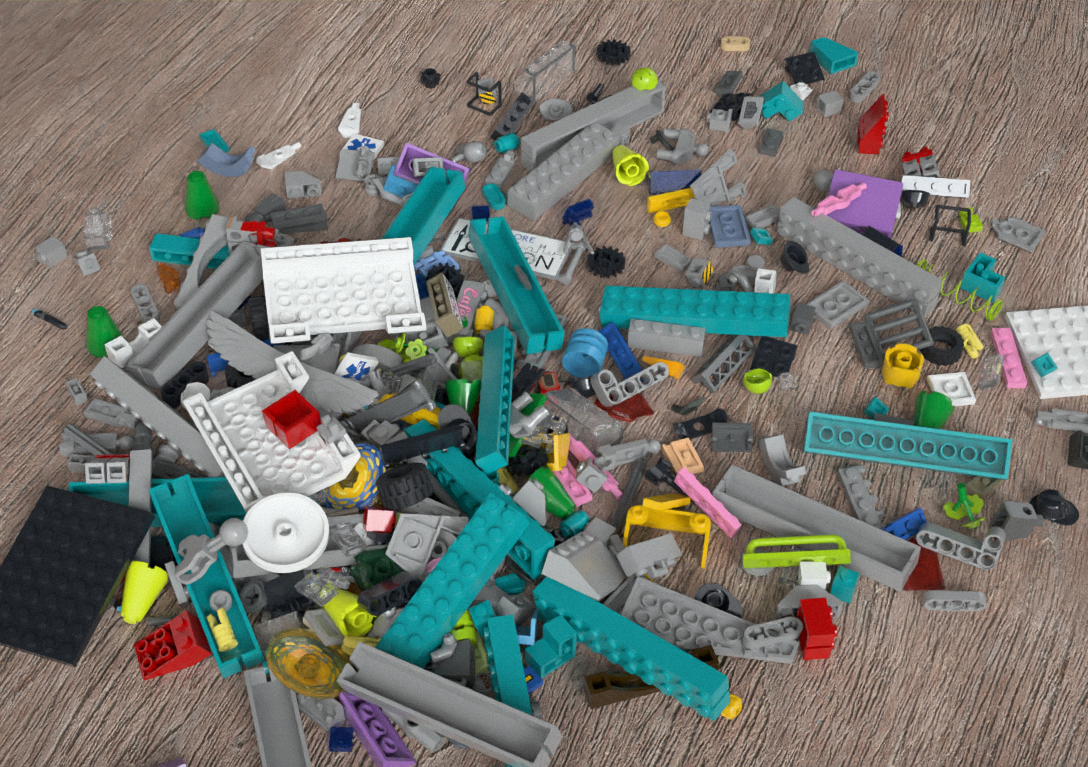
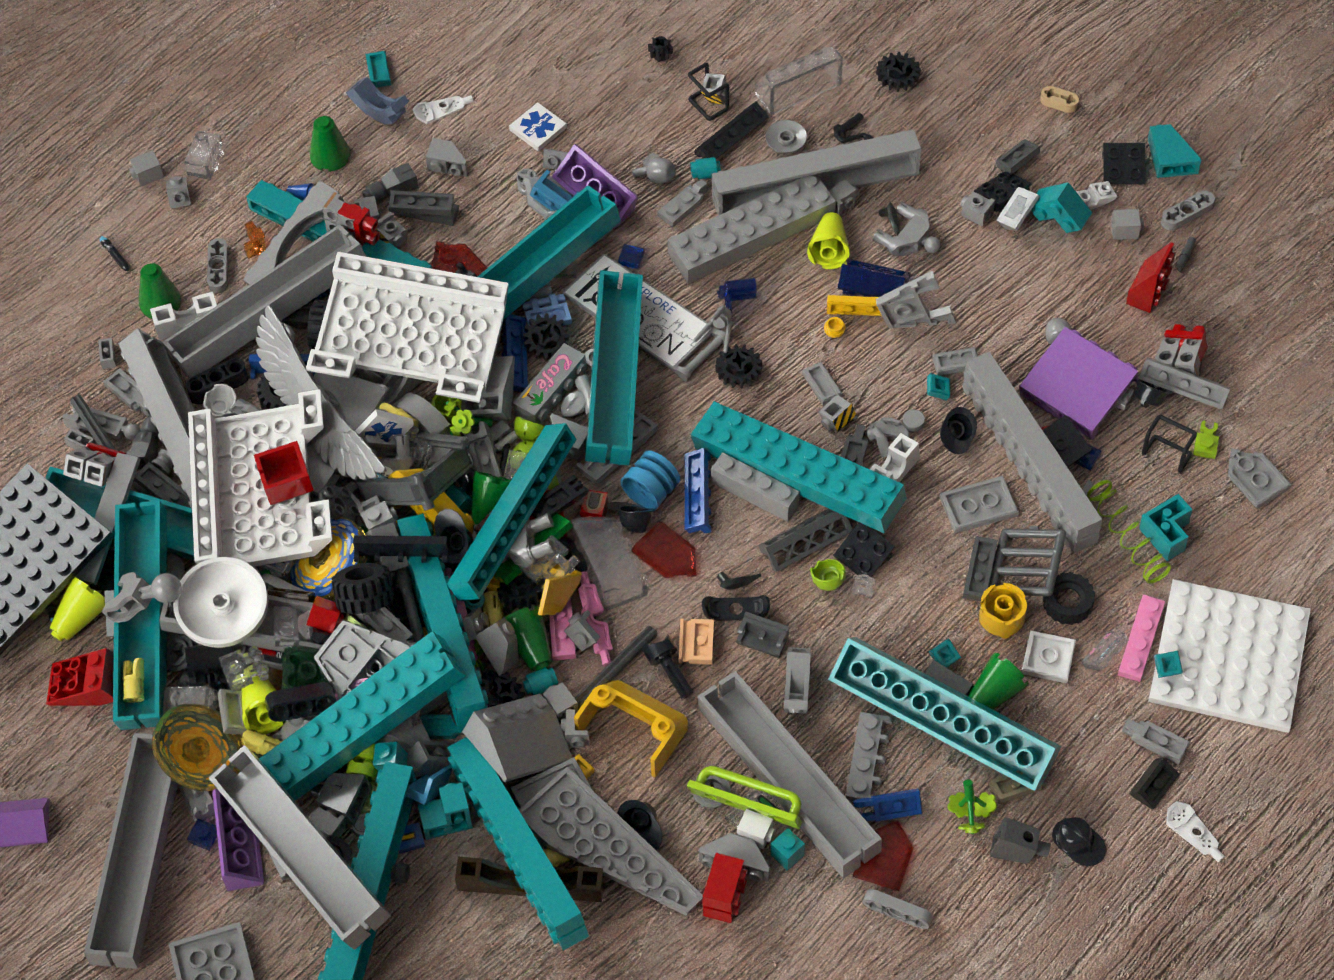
camera: 25 degrees right, 10 degrees up
(153, 621) = (90, 647): dark grey piece -> none
(220, 599) = (144, 649): light grey tile -> none
(321, 344) = (361, 383): light grey piece -> none
(330, 429) = (313, 499): light grey tile -> none
(350, 122) = (538, 91): white piece -> none
(355, 164) = (518, 147): light grey hinge -> none
(422, 165) = (580, 178): light grey slope -> none
(444, 305) = (521, 372): dark tan brick -> none
(446, 650) = (337, 780): light grey arm -> none
(484, 319) = (562, 401): yellow brick -> none
(493, 196) = (657, 237): teal tile -> none
(522, 277) = (624, 363): dark grey piece -> none
(625, 453) = (634, 616): light grey plate -> none
(633, 383) = (682, 531): light grey beam -> none
(643, 556) = (602, 744): light grey piece -> none
(644, 79) = (897, 138): lime helmet -> none
(666, 501) = (644, 690): yellow tile -> none
(675, 368) = (735, 524): light orange slope -> none
(697, 219) = (868, 343): light grey brick -> none
(707, 502) = (694, 714): bright pink plate -> none
(729, 226) = (906, 360): sand blue plate -> none
(733, 708) = (597, 939): yellow piece -> none
(766, 639) = (669, 883): light grey beam -> none
(771, 142) = (1025, 258): dark grey plate -> none
(803, 318) = (925, 512): dark grey brick -> none
(842, 200) = (1032, 375): bright pink piece -> none
(960, 541) = (939, 851): light grey beam -> none
(971, 341) = (1105, 601): light yellow hinge -> none

